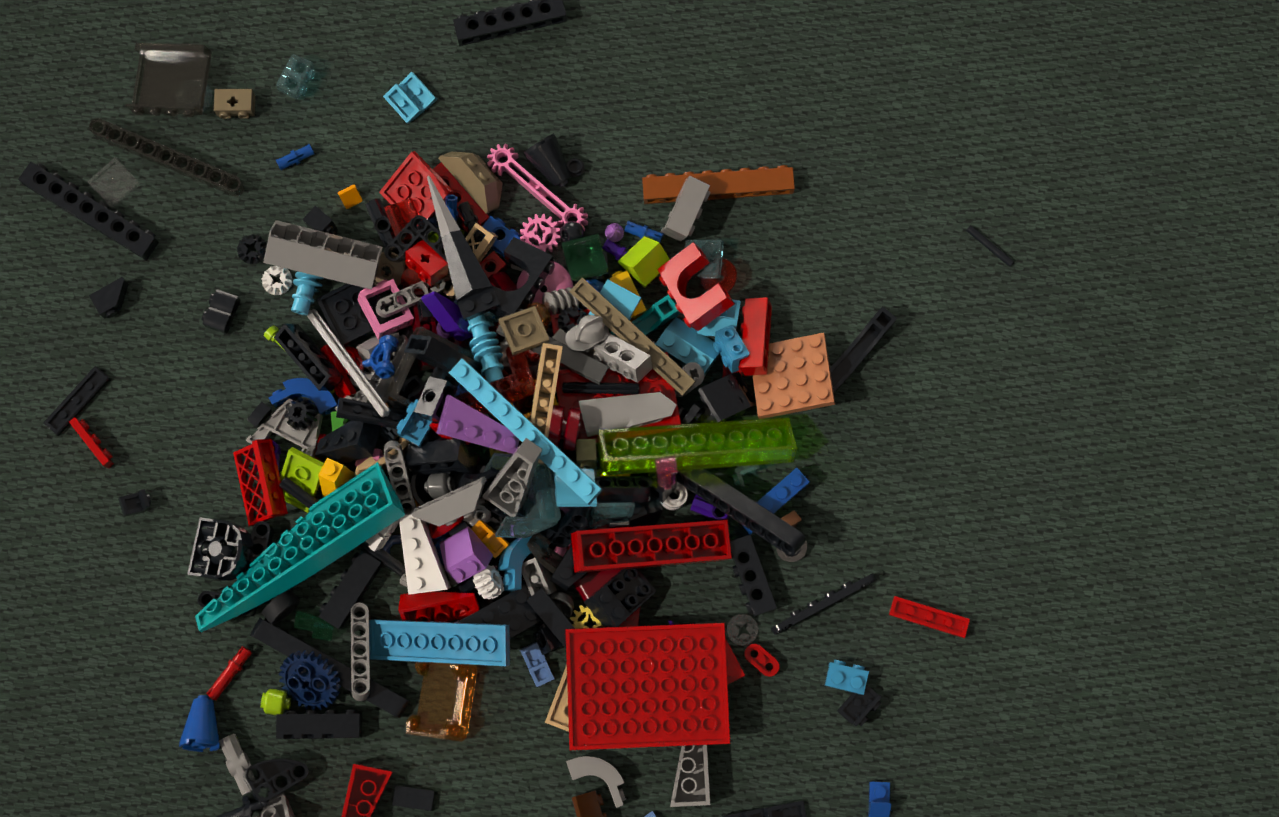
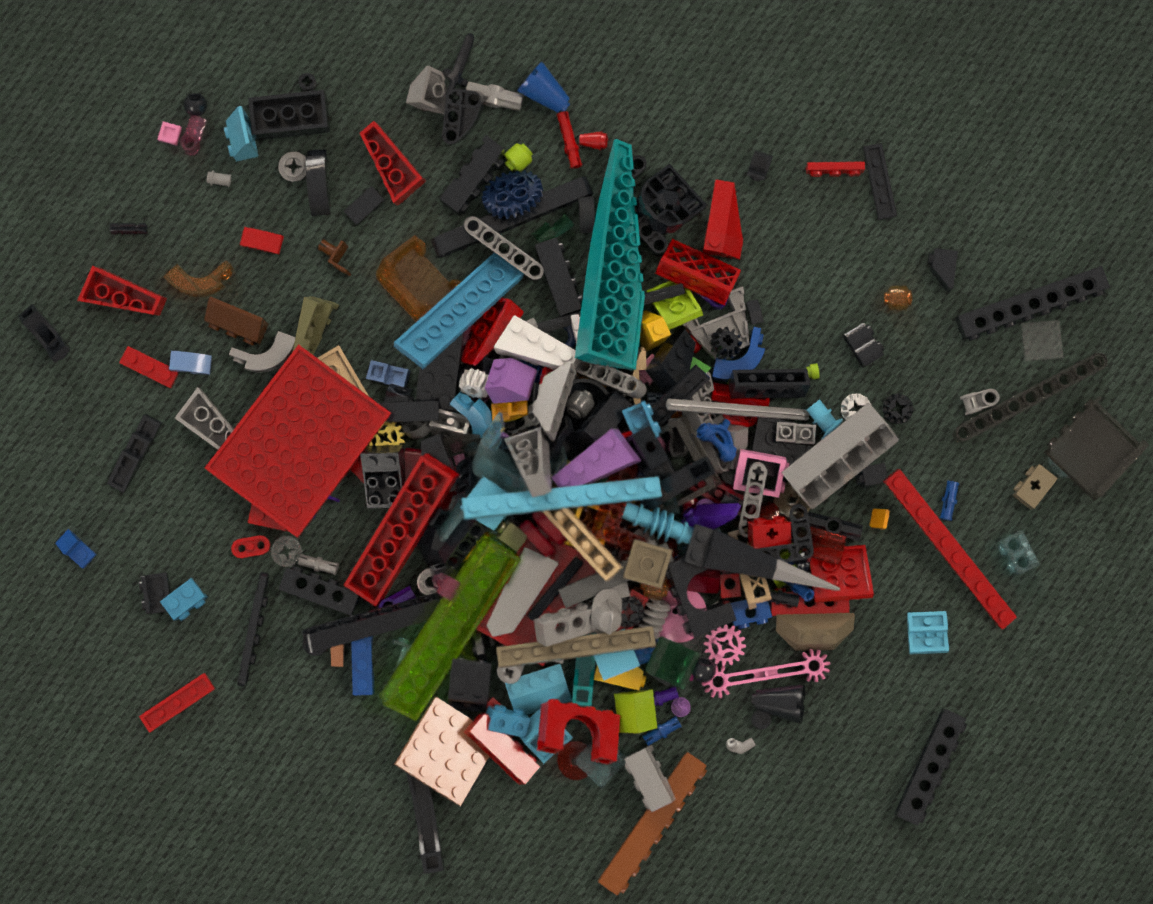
camera: 130 degrees right, 5 degrees up
(162, 313) = (898, 297): none -> clear orange head
(200, 193) = (976, 401): none -> light grey piece
(209, 492) = (724, 227): none -> red wedge
(213, 652) = (594, 140): none -> red cone
(331, 126) = (949, 548): none -> red plate
(332, 307) = (796, 433): none -> light grey slope
(471, 788) = (335, 254): none -> reddish brown bracket
(544, 758) = (312, 322): none -> olive wedge
(609, 167) = (740, 747): none -> light grey arm
(731, 595) = (318, 564): none -> light grey pin

